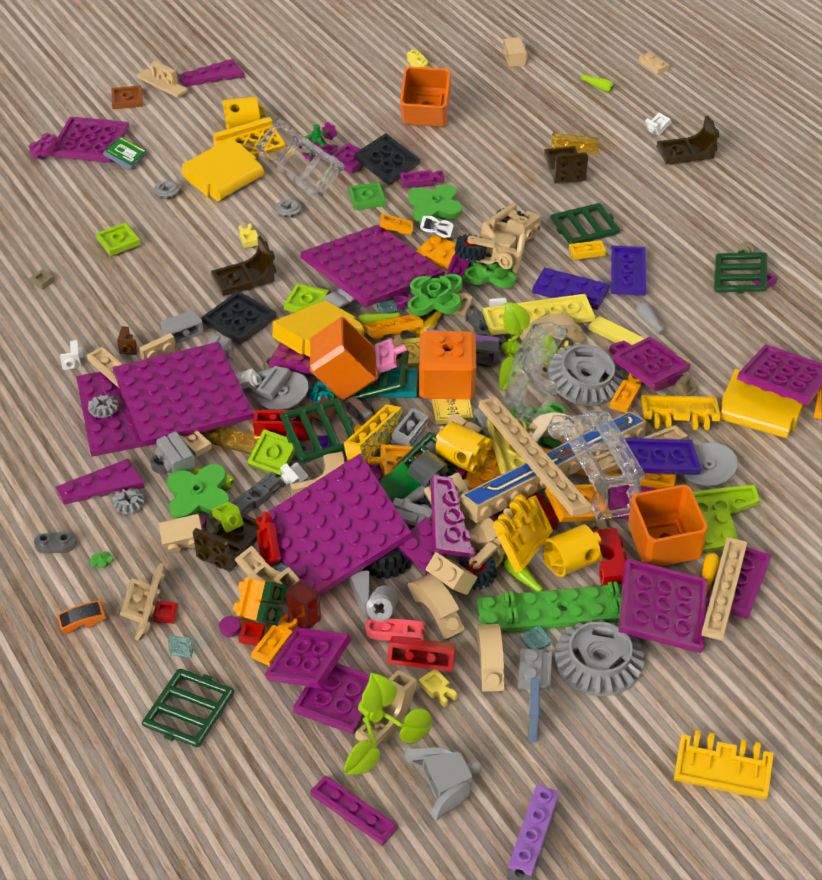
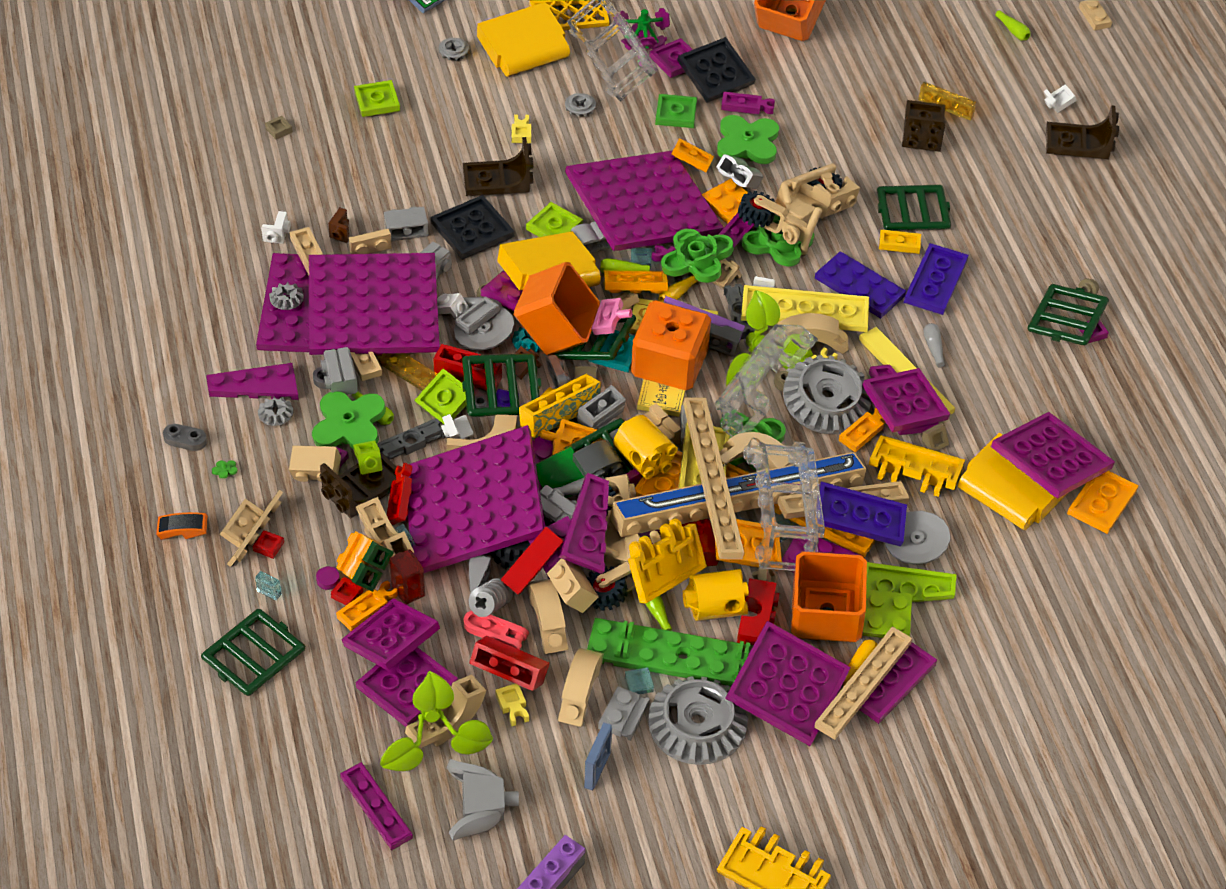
camera: 15 degrees right, 5 degrees up
(409, 562) = (532, 561): none -> red tile

